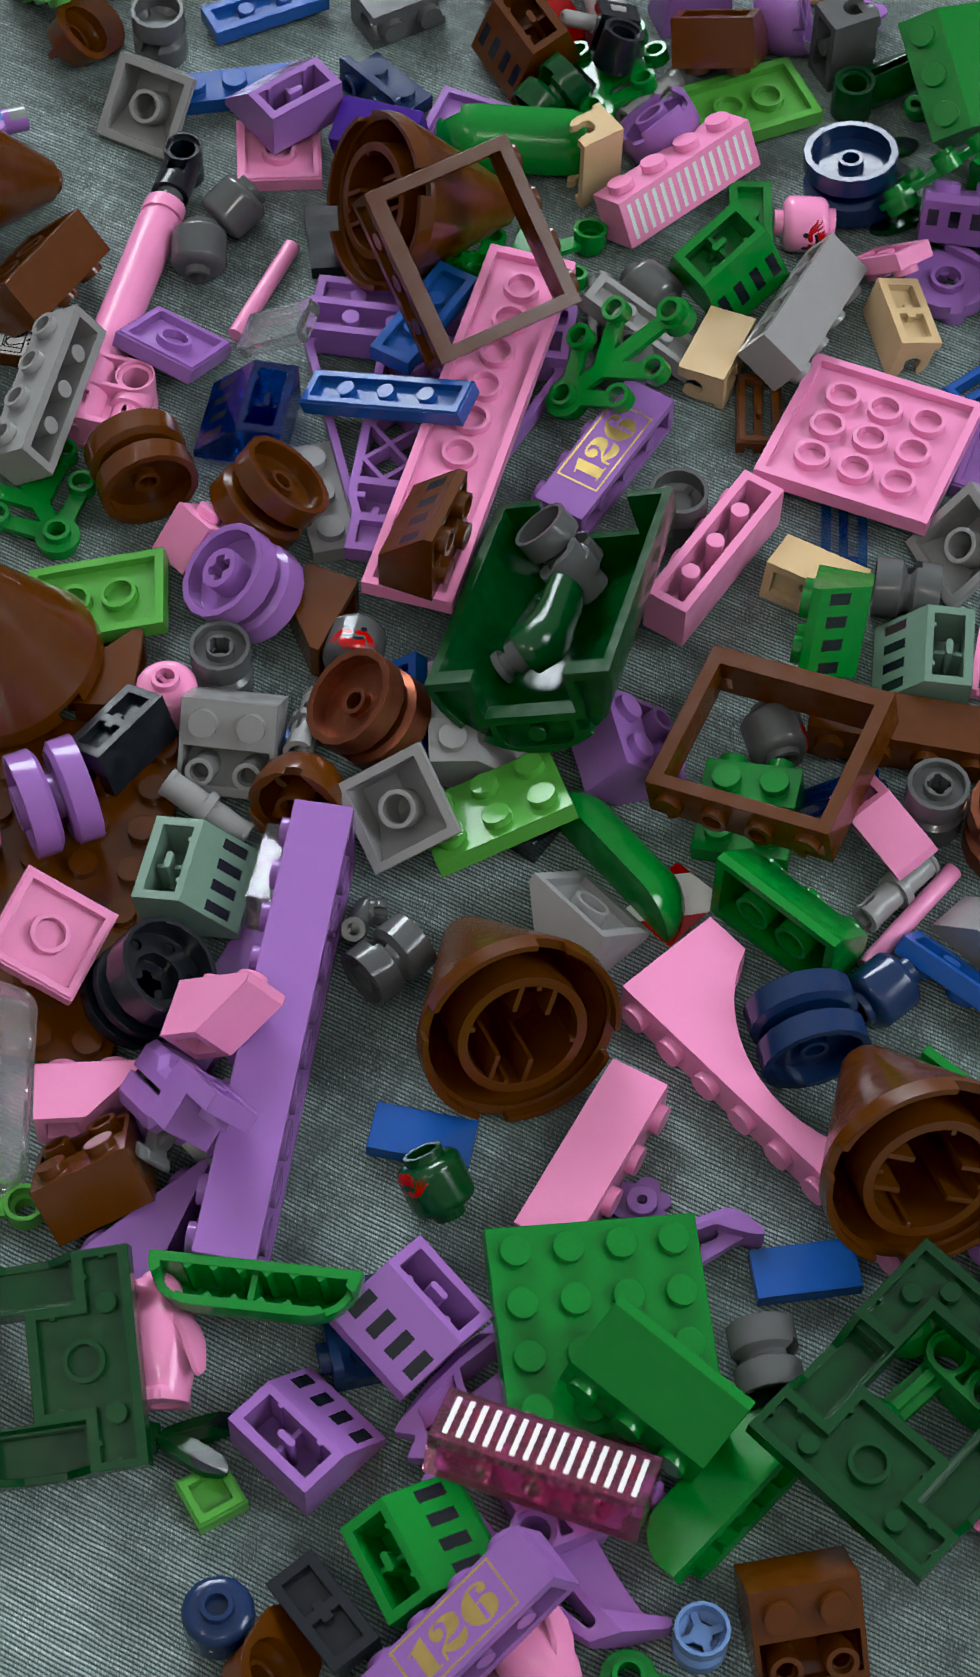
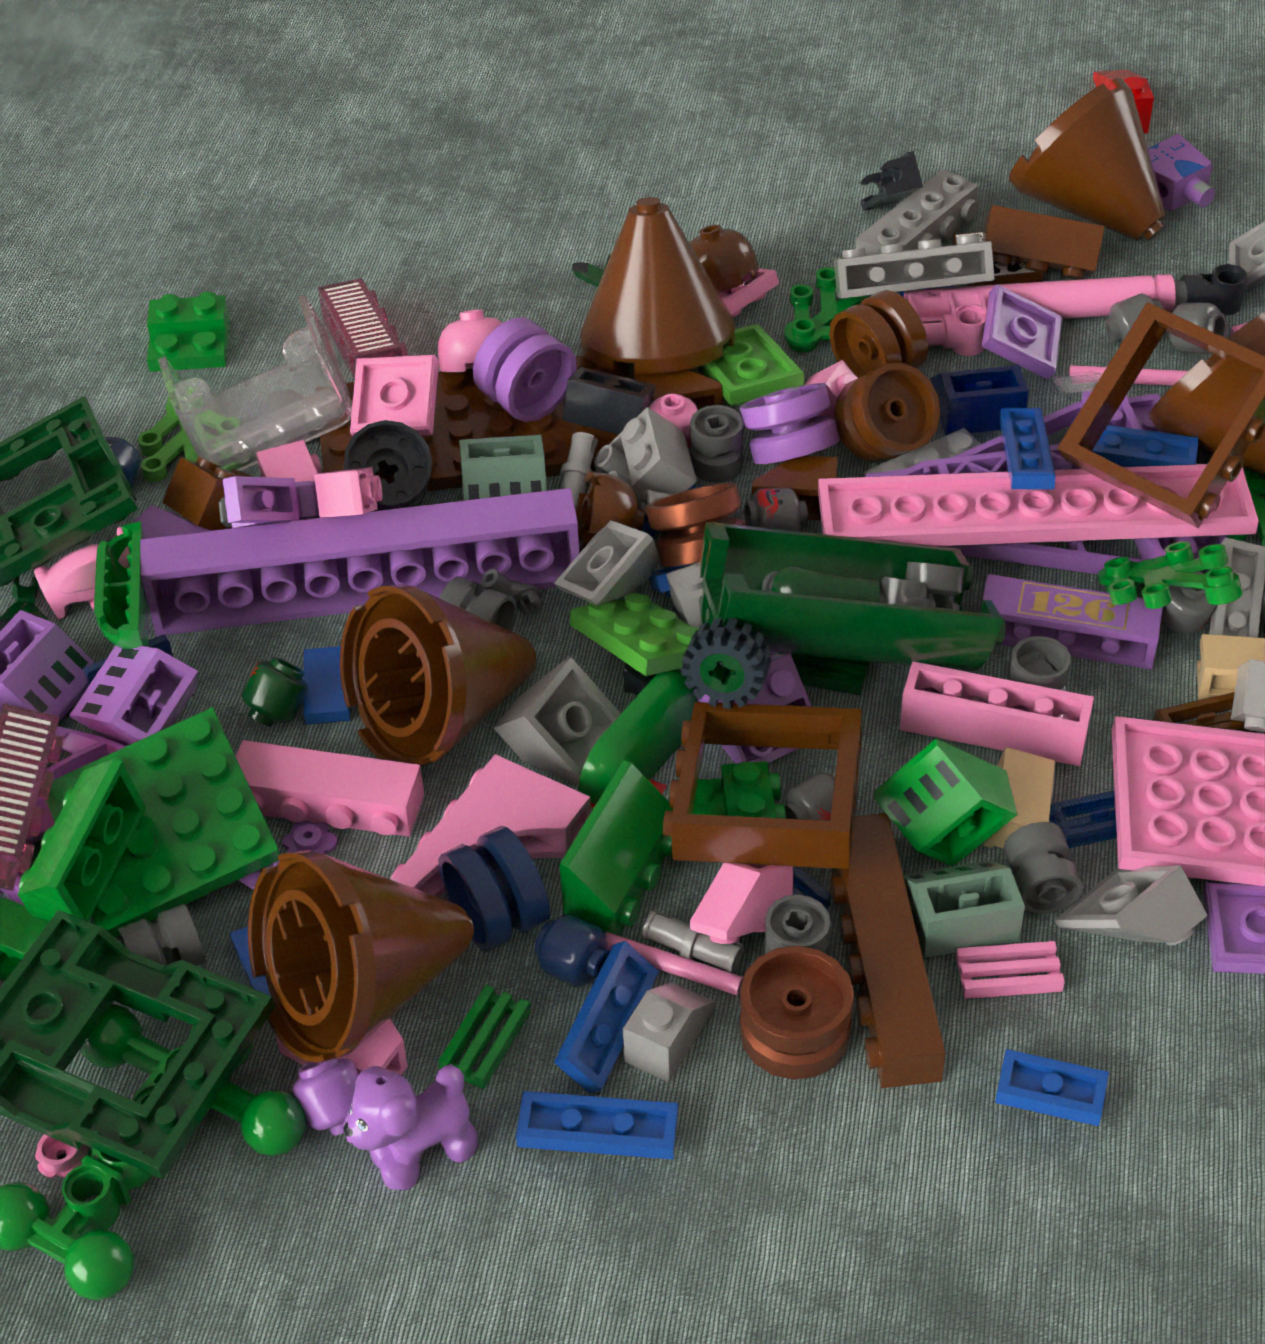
camera: 75 degrees right, 10 degrees down
(427, 536) = (866, 490): reddish brown slope -> none
(640, 726) = (741, 654): none -> black wheel

